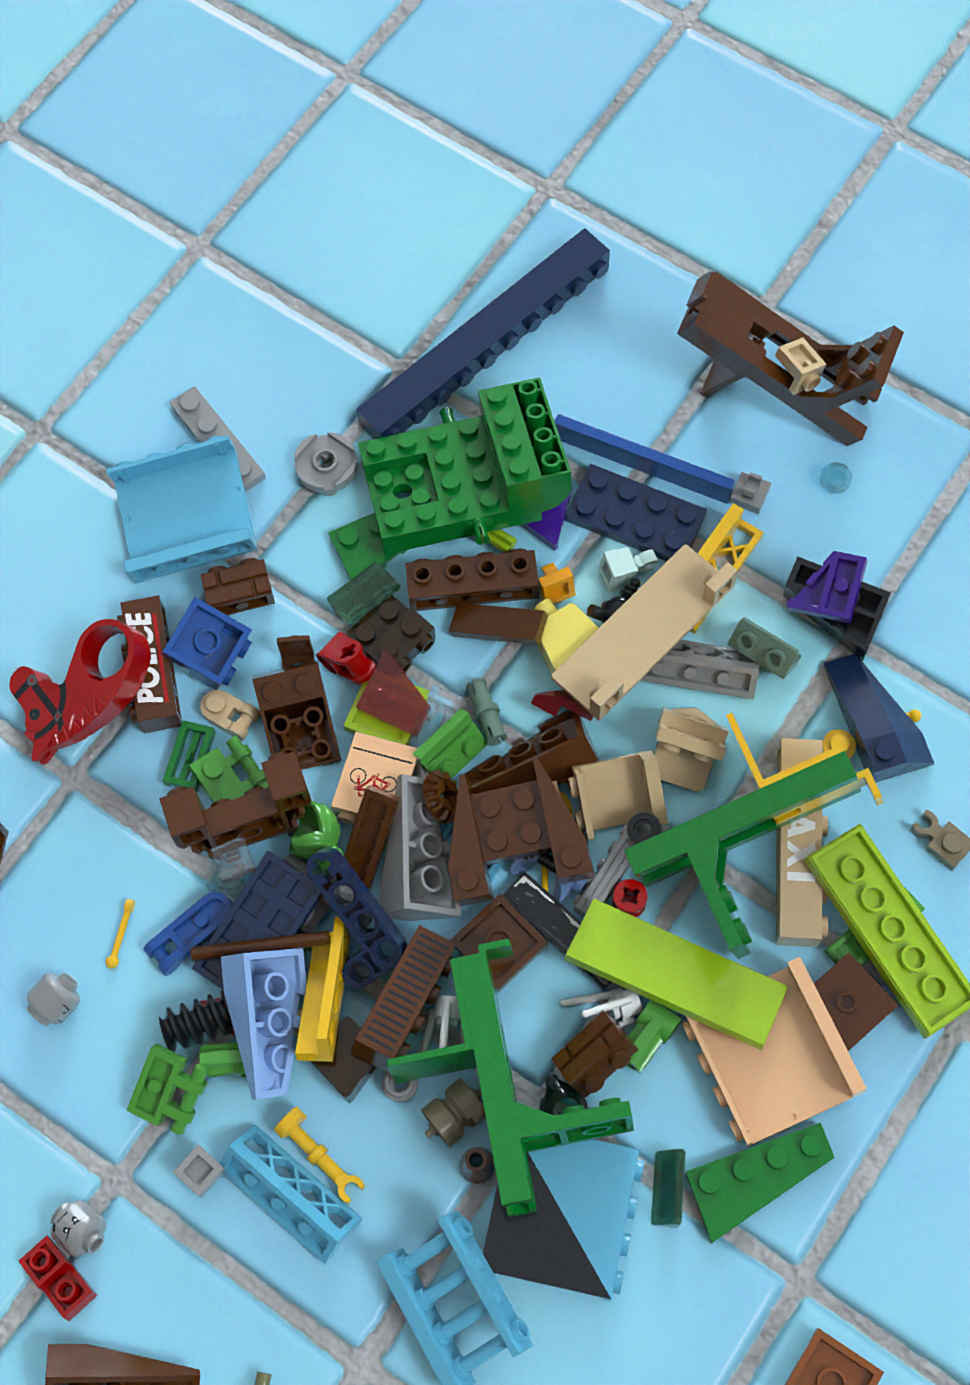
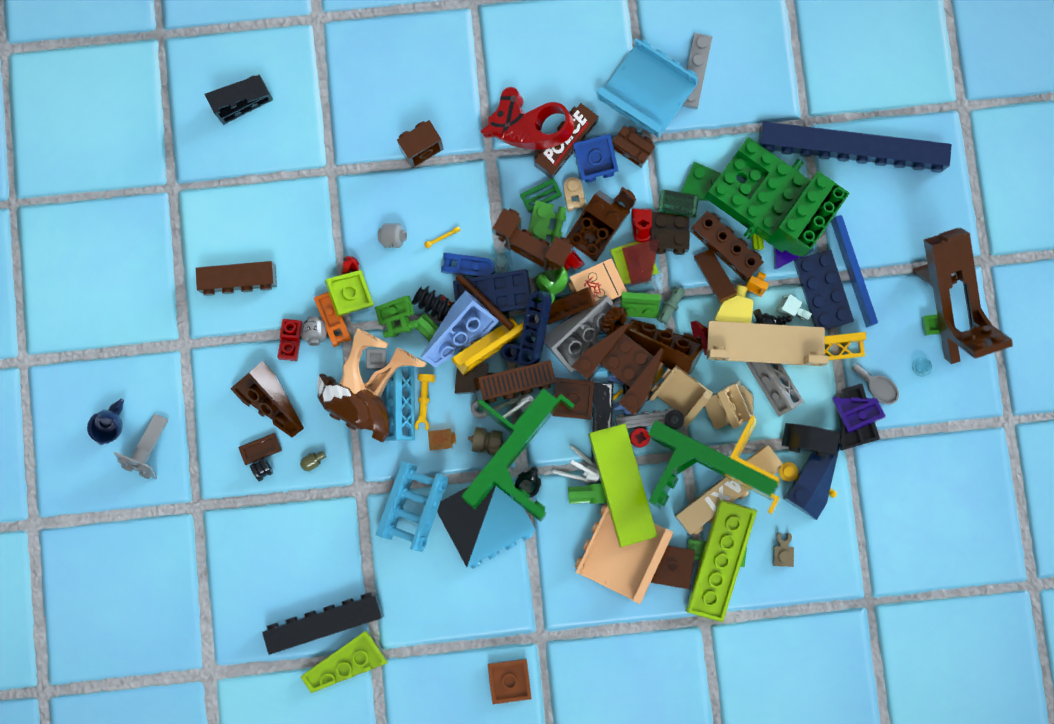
camera: 45 degrees right, 15 degrees up
(37, 1094) = (349, 264): none -> red plate
(73, 1129) = (349, 293): none -> lime plate
(82, 1183) = (332, 321): none -> orange plate
(228, 1249) = (357, 401): none -> animal
(233, 859) = (510, 257): clear tile -> none
(317, 784) = (573, 261): none -> red tile
(323, 447) = (718, 123): light grey plate -> none
(395, 1177) = (441, 439): none -> clear orange bracket
(477, 1174) = (479, 463): reddish brown cone -> none
(595, 1054) = (559, 479): reddish brown brick -> none
(668, 1188) = (531, 553): clear green slope -> none
(750, 492) = (880, 333): light grey tile -> none
(751, 1179) = (562, 584): green wing -> none
(764, 648) = (805, 403): sand green bracket -> none
(791, 425) = (930, 325): none -> bright green plate
(802, 364) = (959, 309): tan bracket -> none
(815, 545) = (879, 386): none -> light grey piece
(818, 679) = (810, 439): none -> black brick

